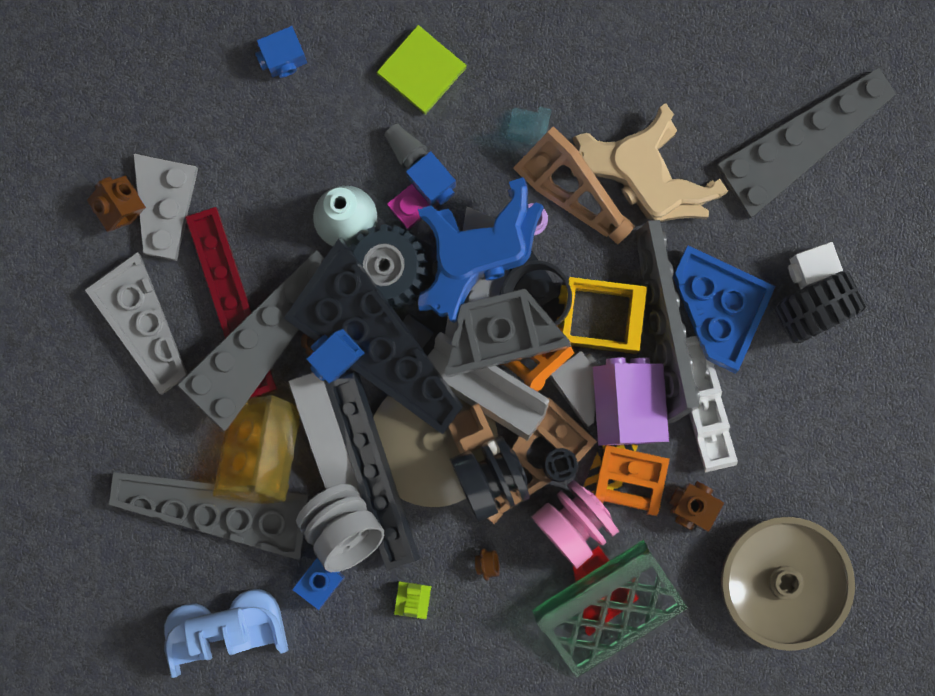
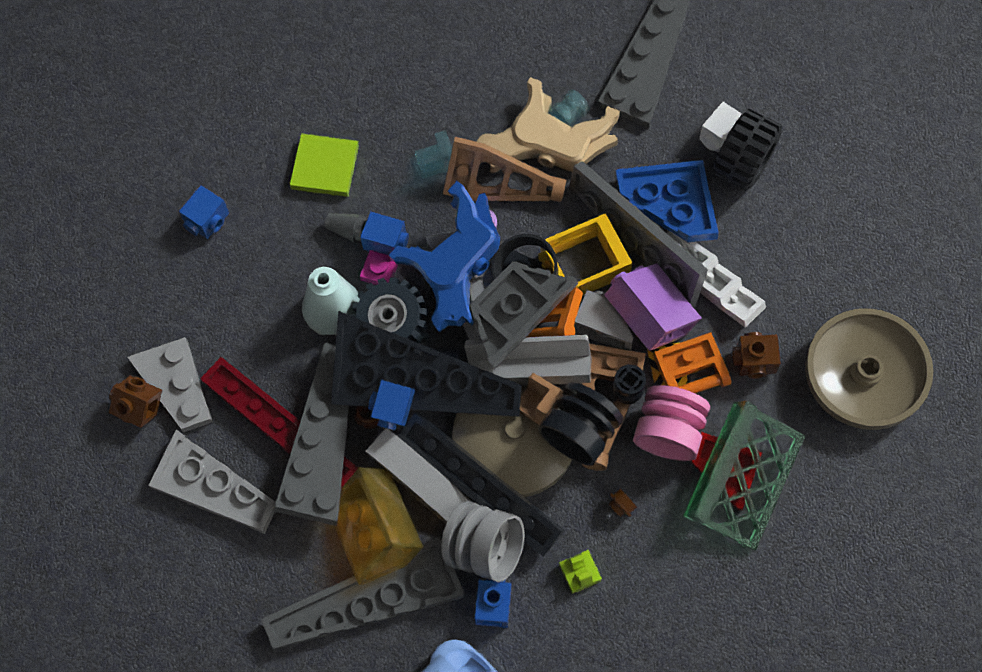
camera: 25 degrees left, 15 degrees down
(684, 156) = (570, 108): none -> clear light blue wheel

